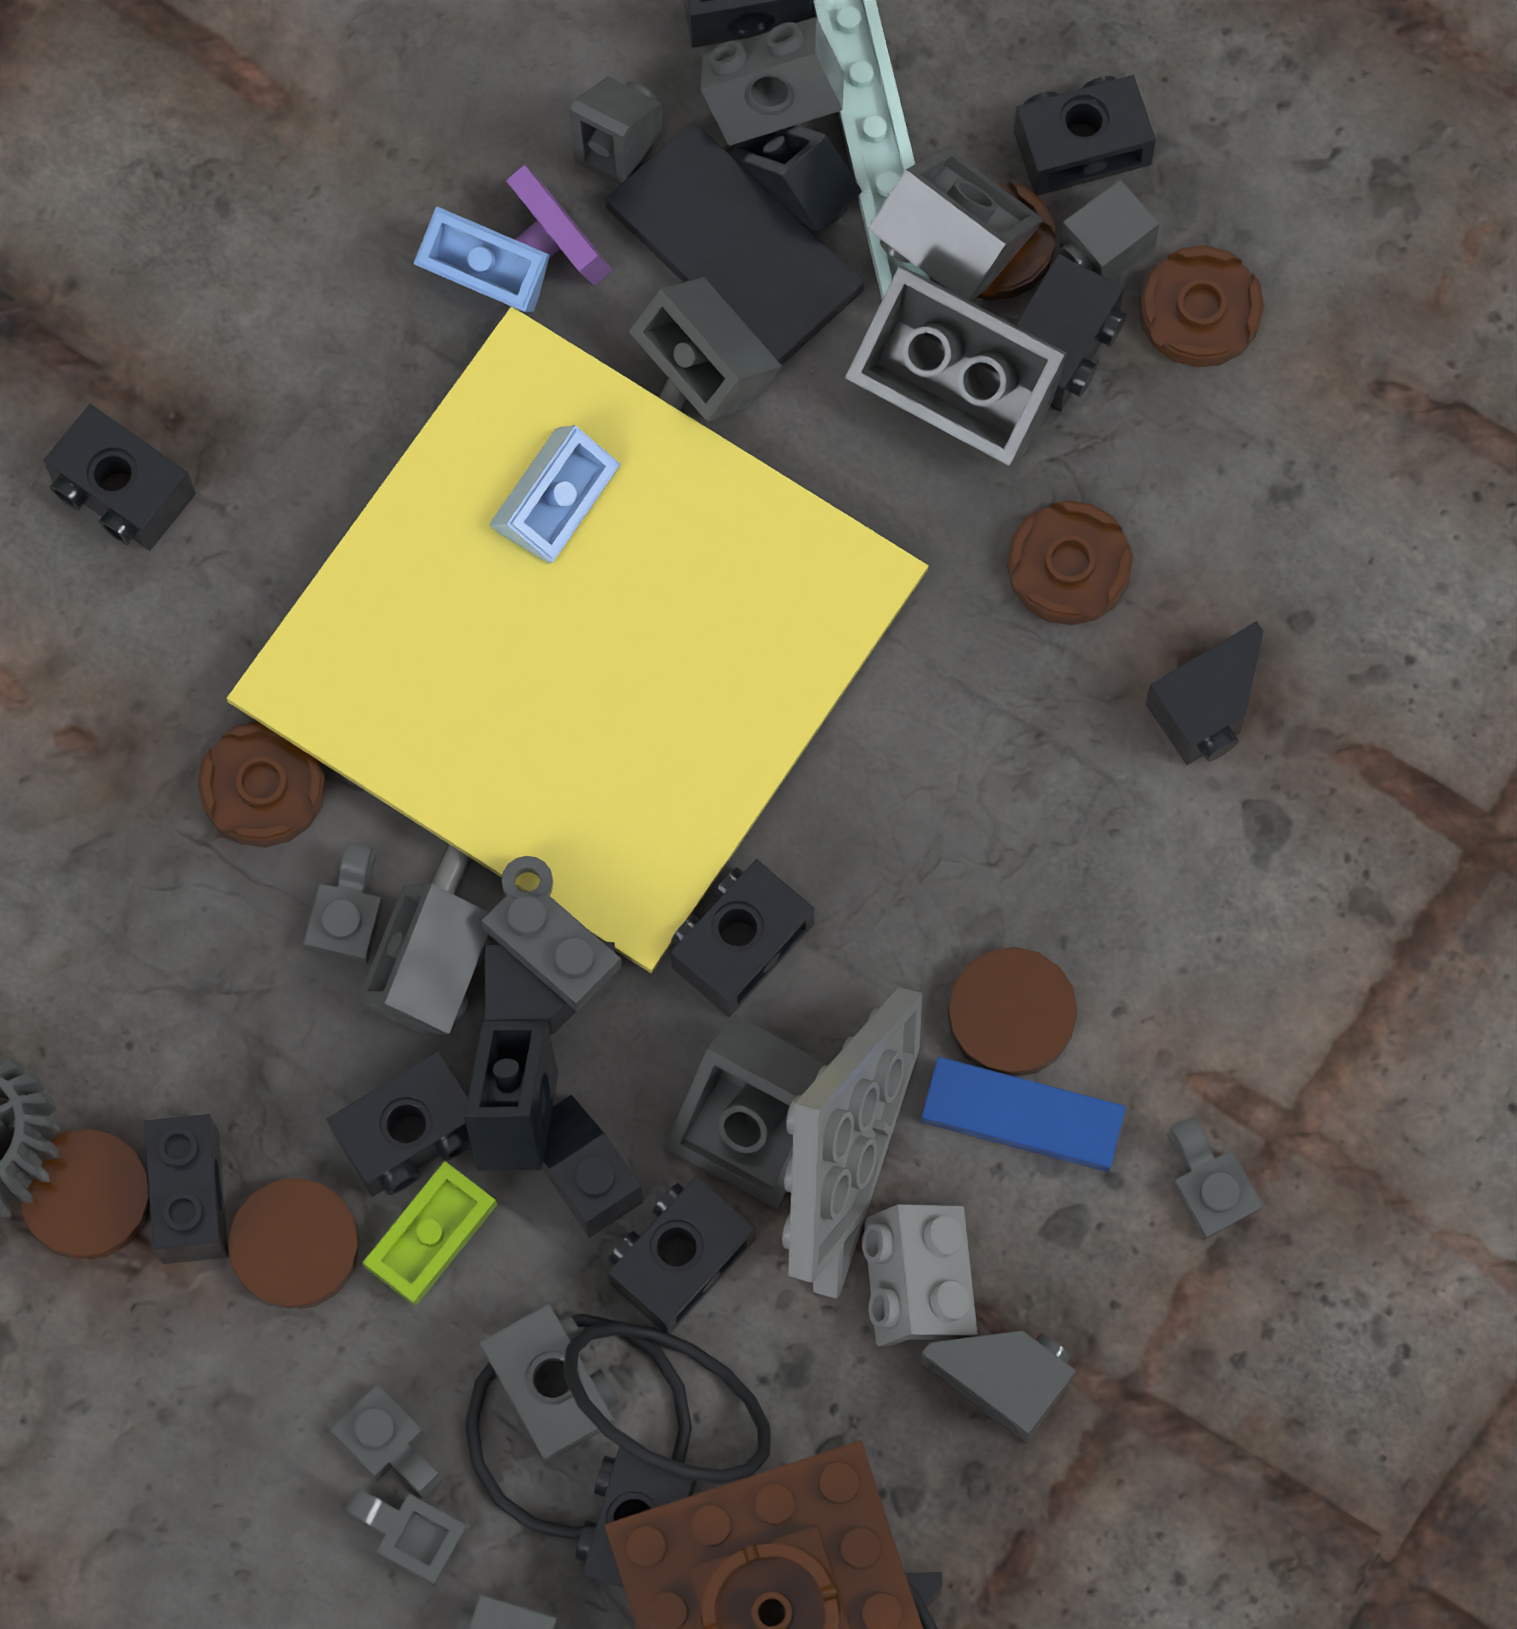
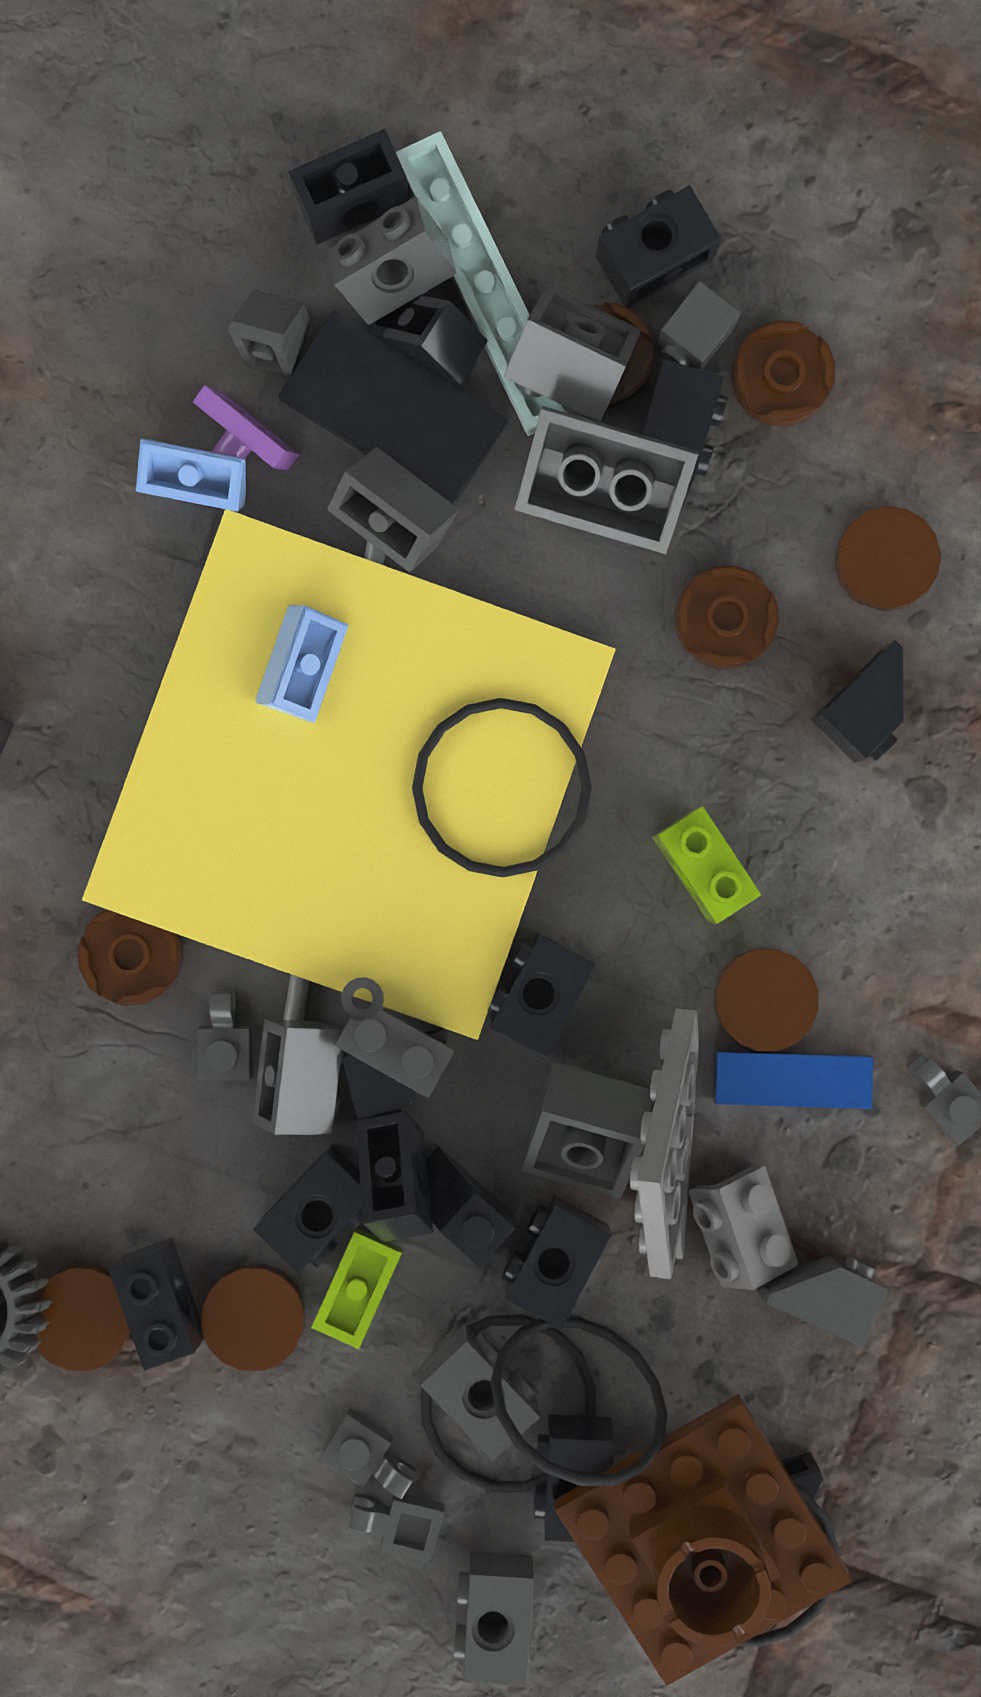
camera: 10 degrees left, 15 degrees up
(752, 783) = (454, 855): none -> black piece
(974, 831) = (706, 865): none -> lime brick
(1277, 538) = (887, 558): none -> reddish brown tile

